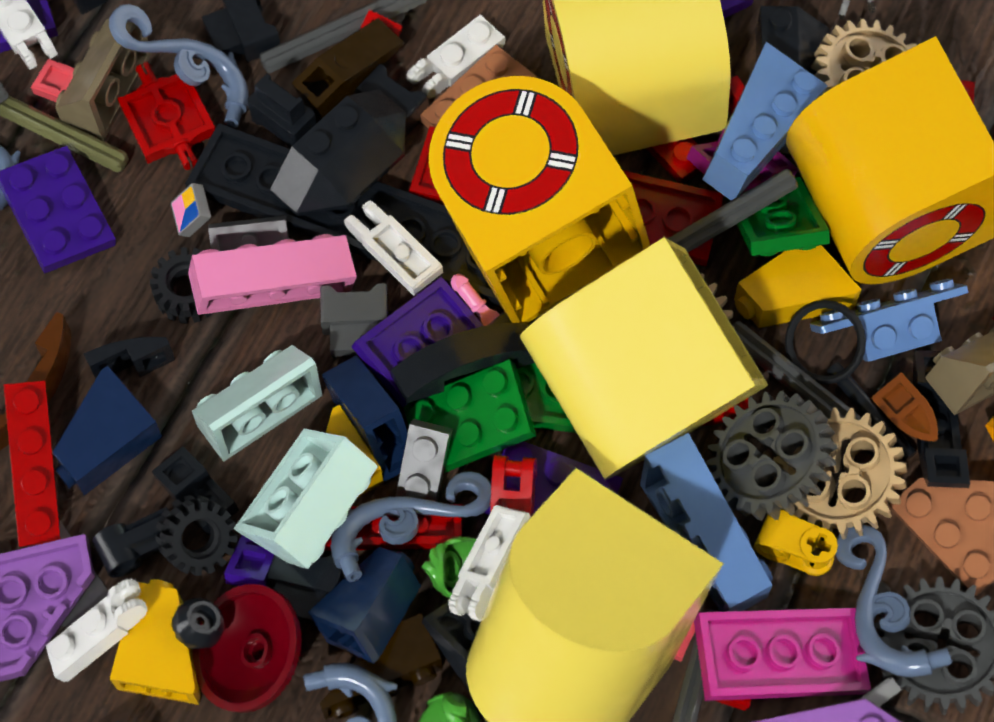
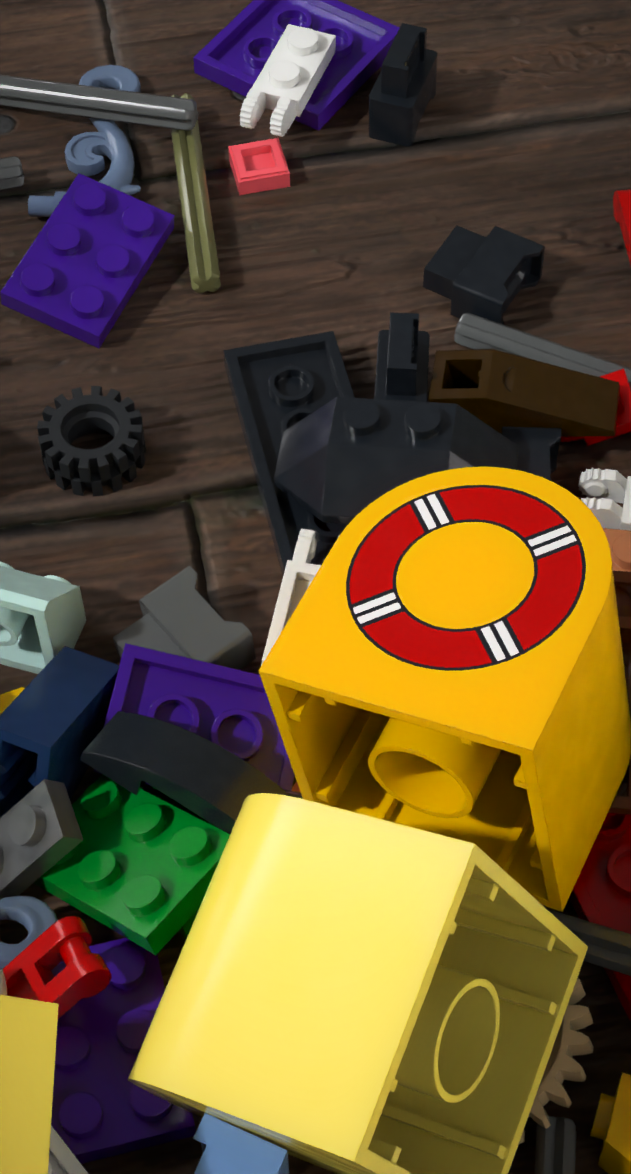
camera: 55 degrees right, 10 degrees down
(99, 80) = (295, 196): dark tan slope -> none
(166, 117) = (300, 281): red plate -> none
(184, 66) = (384, 228): sand blue plant -> none
(190, 210) = (195, 380): tile -> none
(254, 231) = (203, 461): flat silver plate -> none
(270, 273) = (162, 502): bright pink brick -> none

